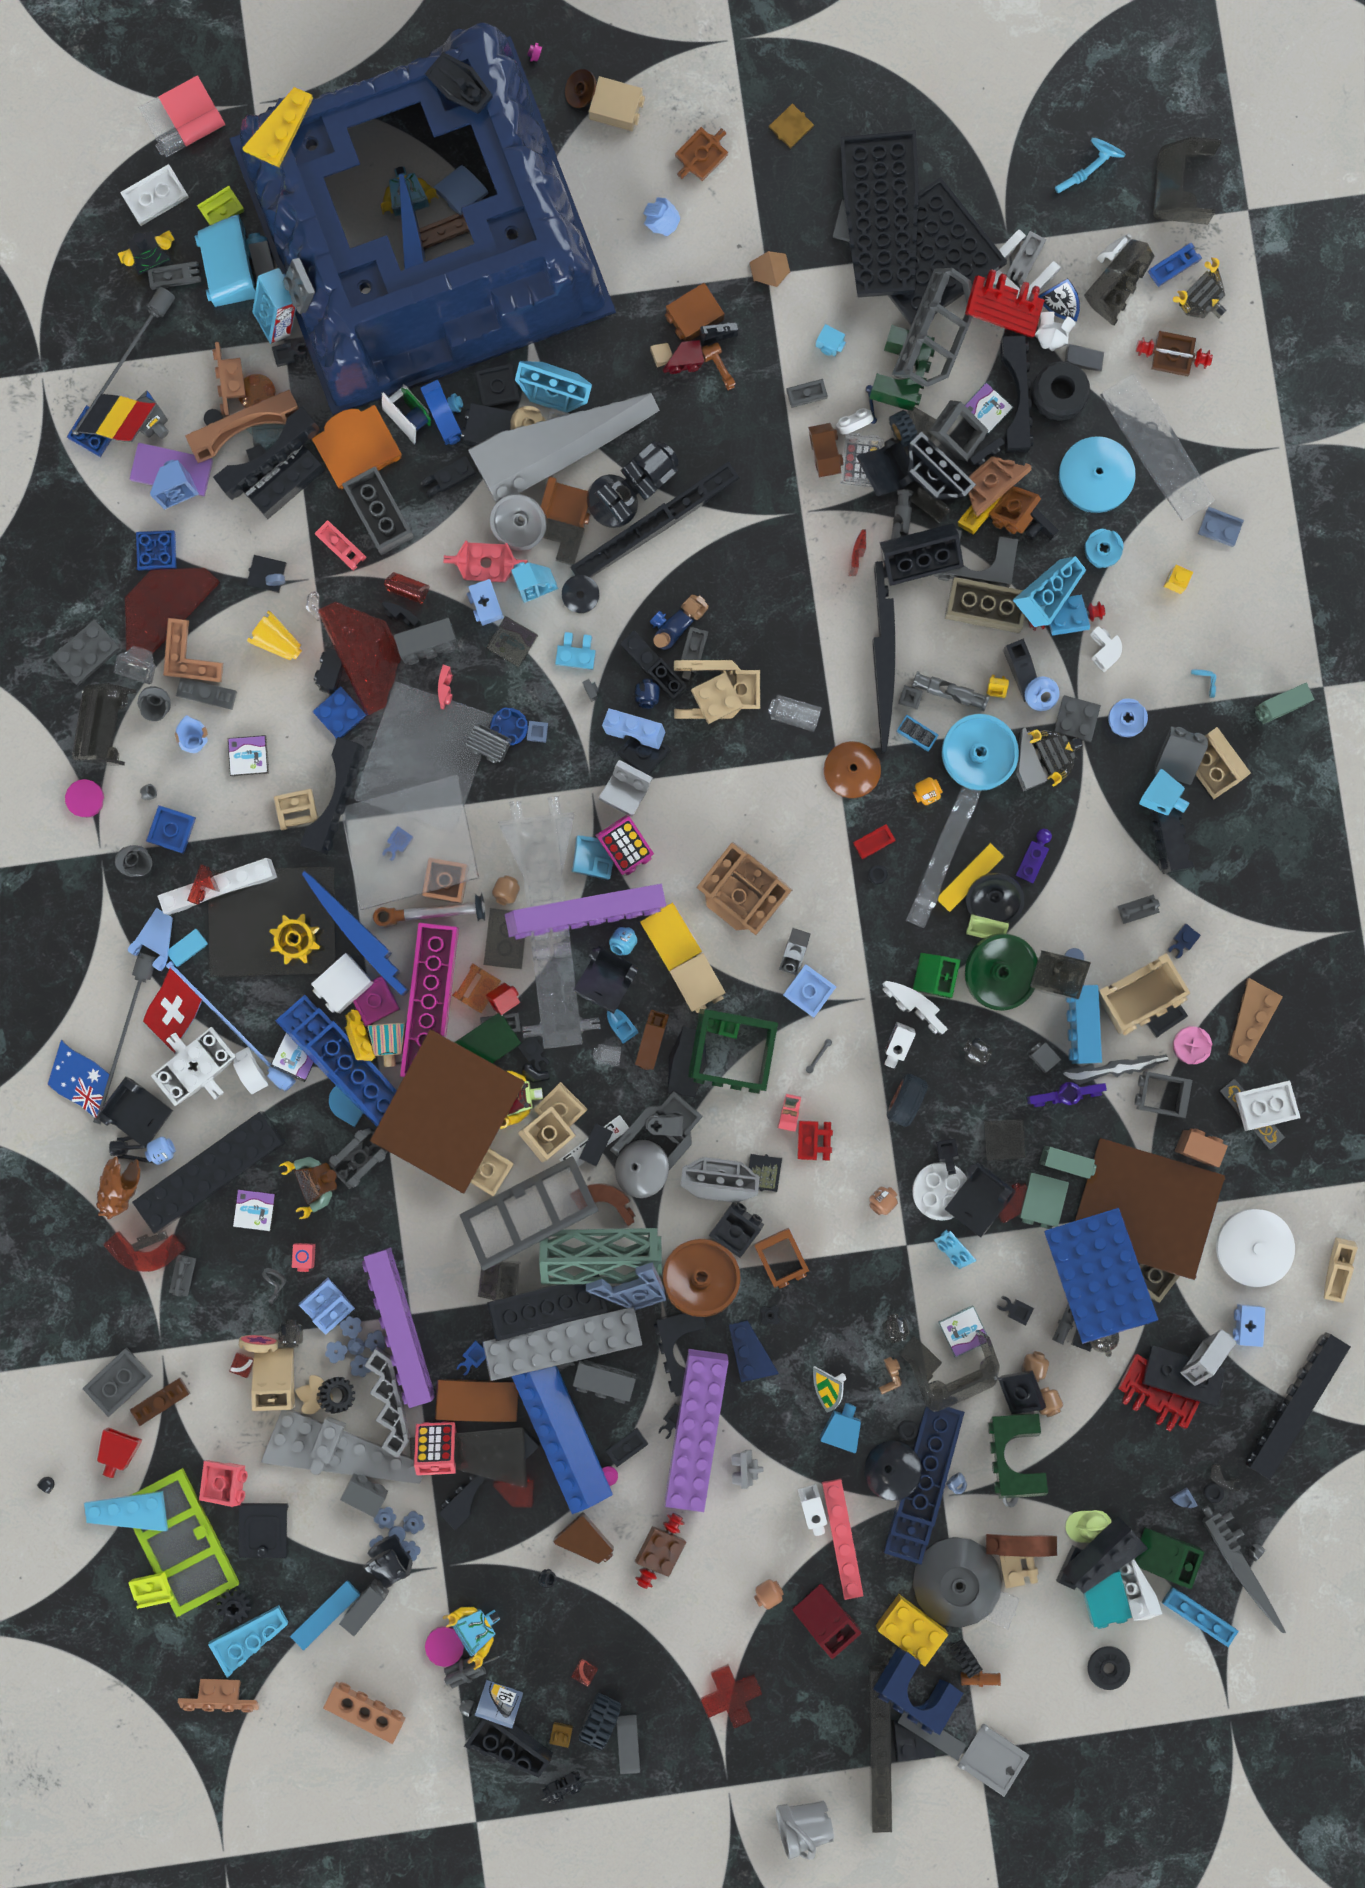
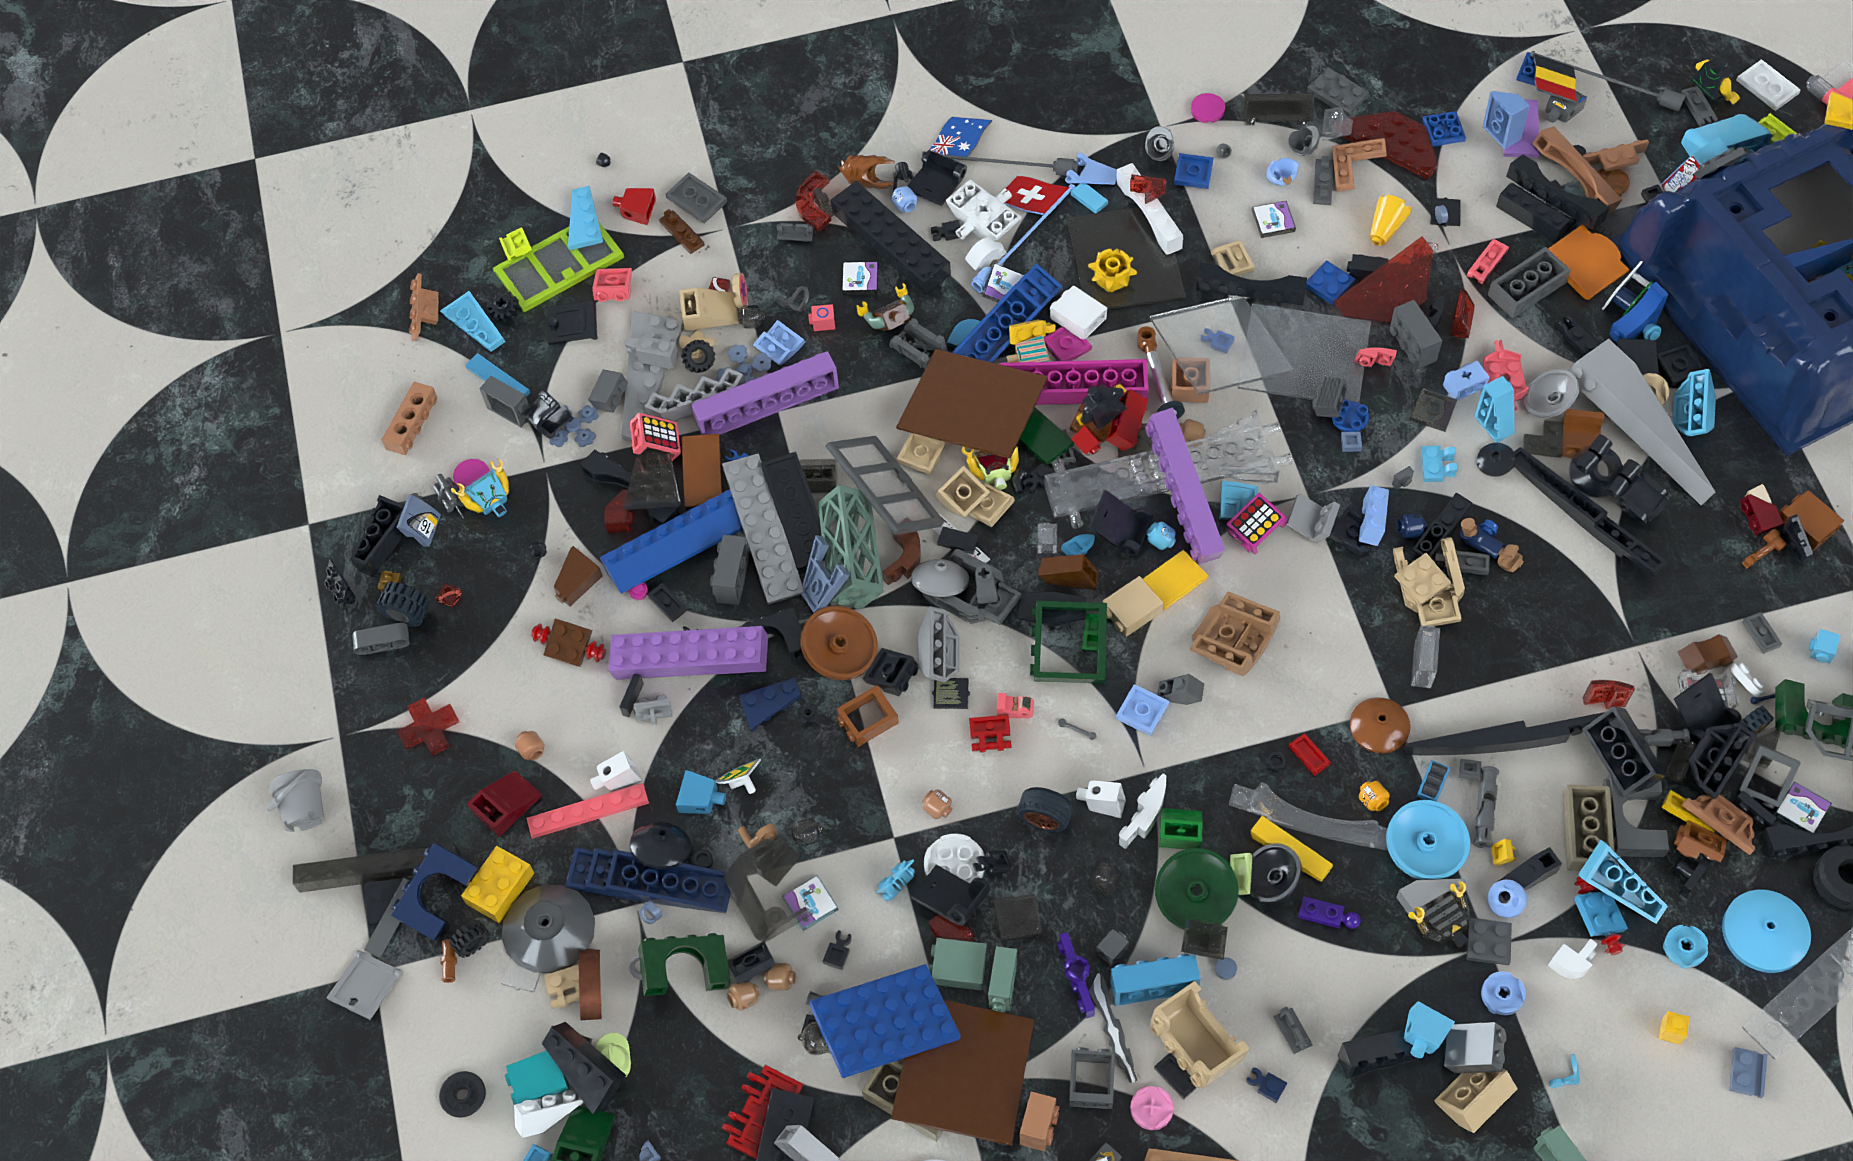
camera: 90 degrees right, 25 degrees down
(206, 1105) = (947, 230): none -> black plate
(359, 935) = (1126, 314): blue slope -> none
(476, 976) = (1102, 405): none -> black torso
(487, 954) = (1127, 424): none -> red brick
(727, 1489) = (631, 695): none -> black tile

